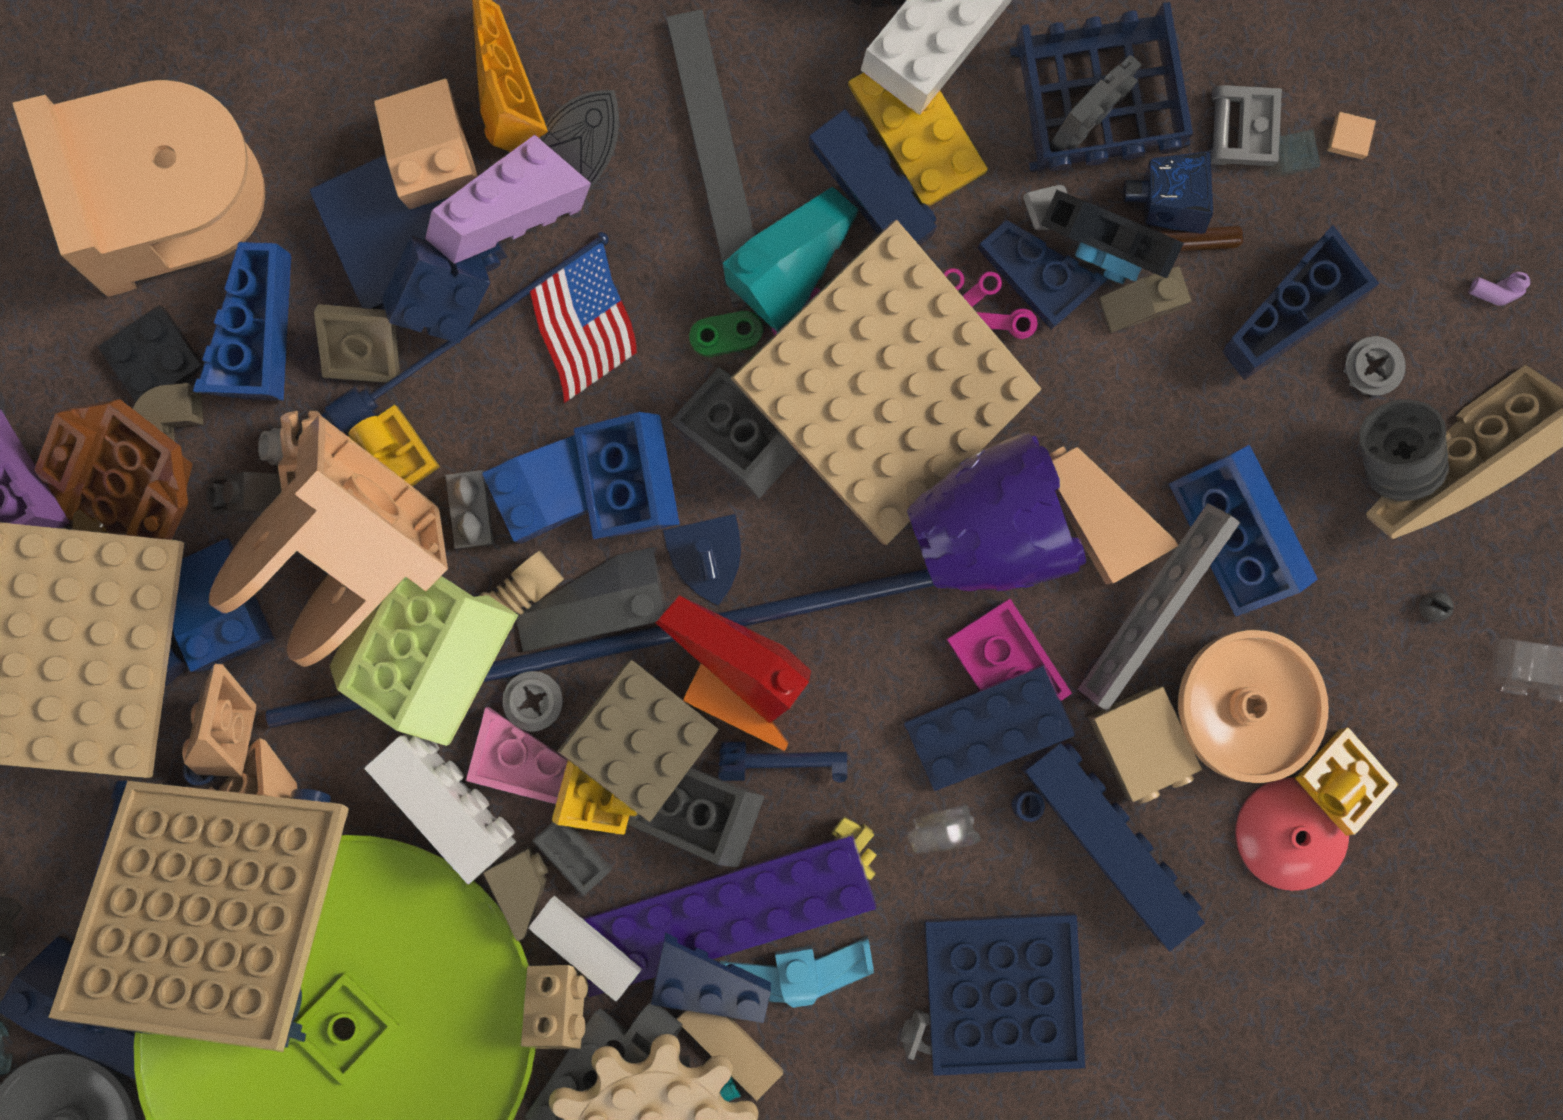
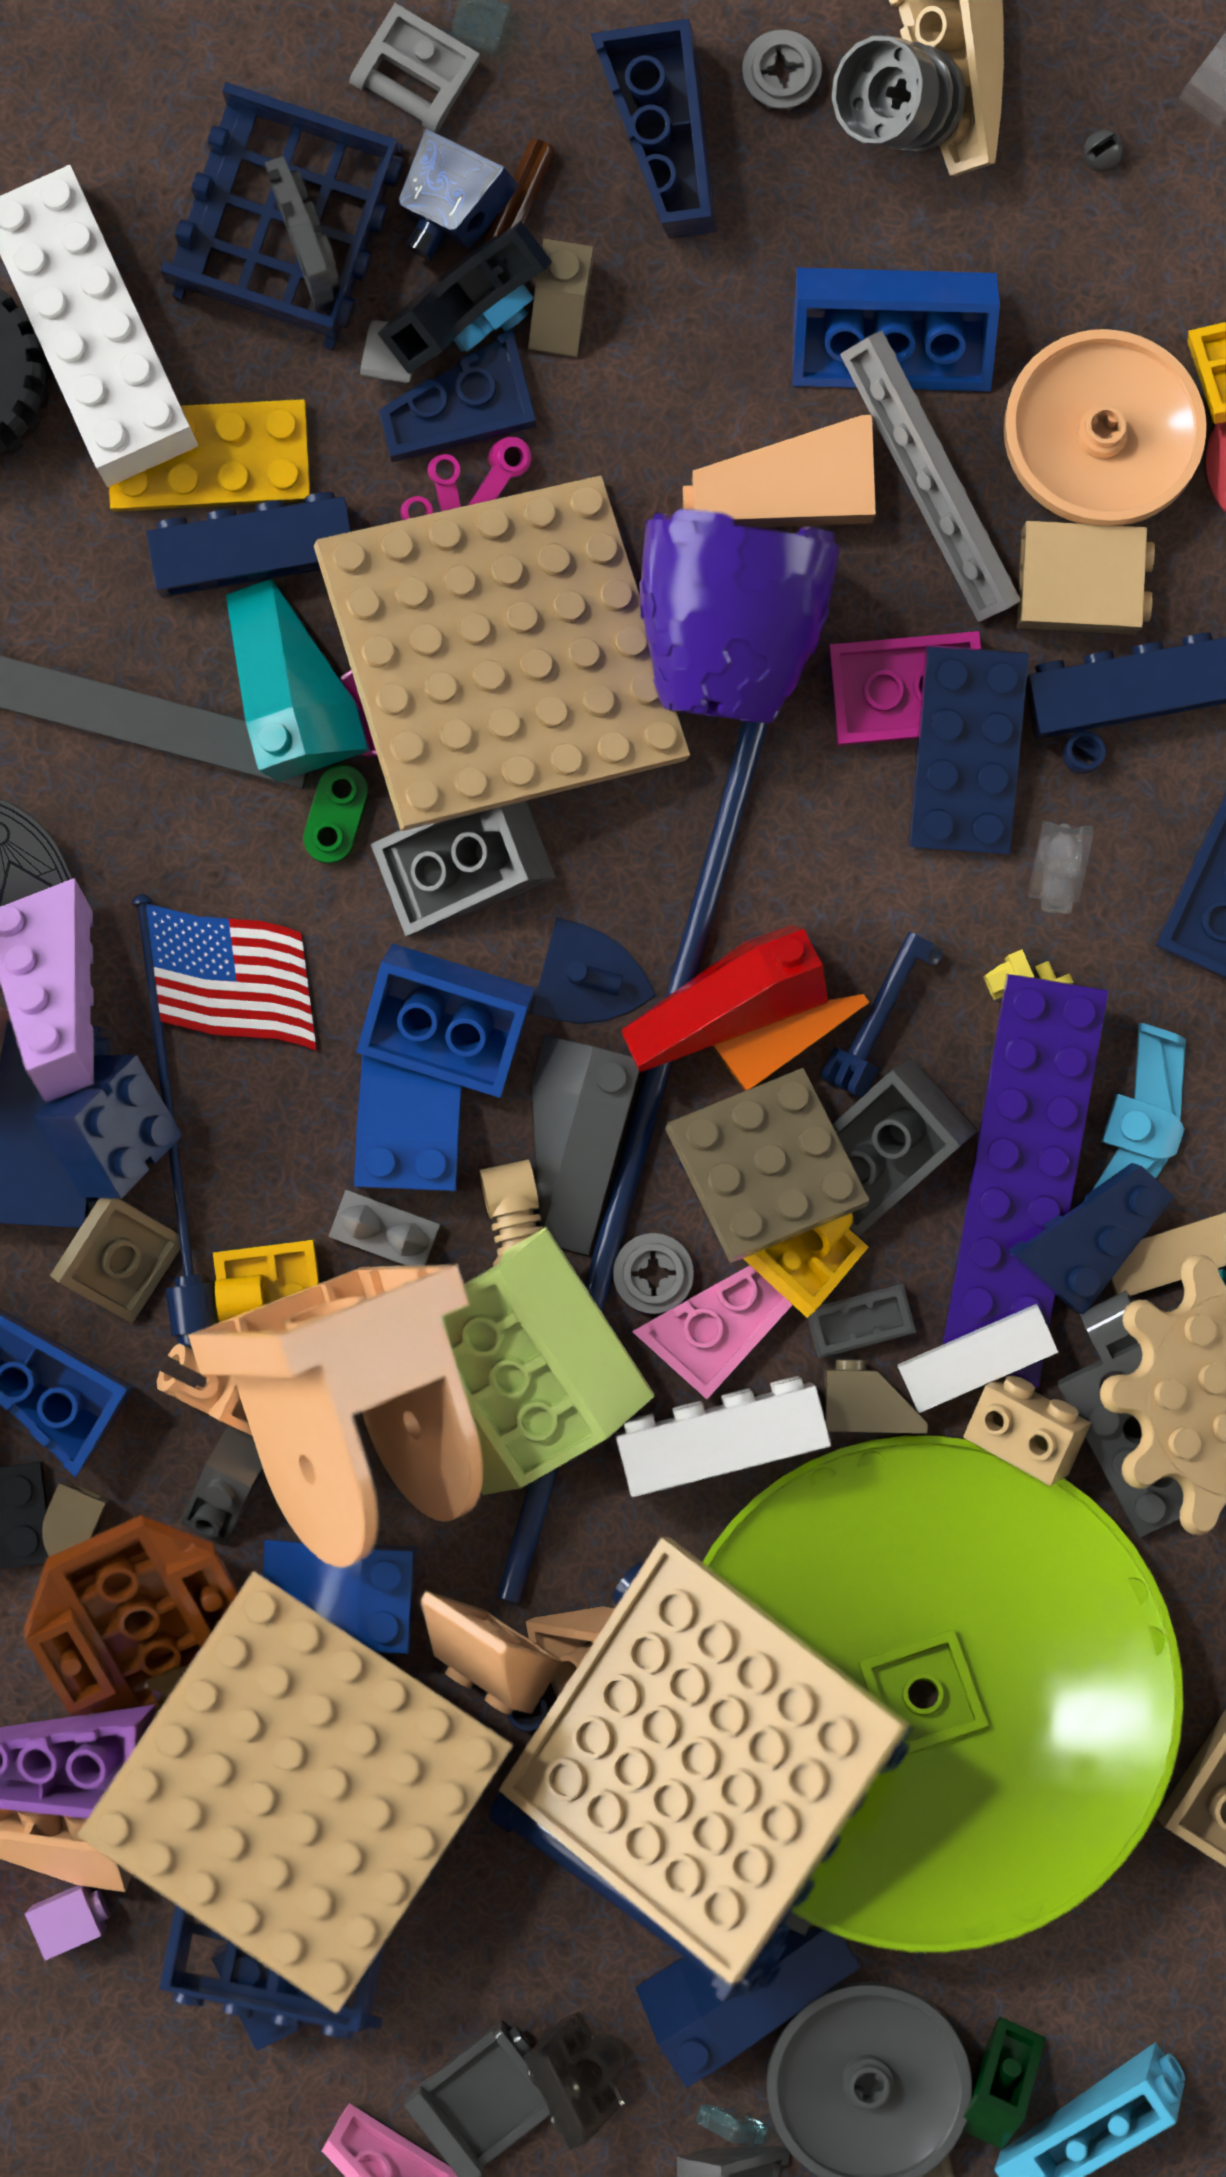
camera: 65 degrees left, 0 degrees up
(270, 446) = (185, 1425): white plate -> none

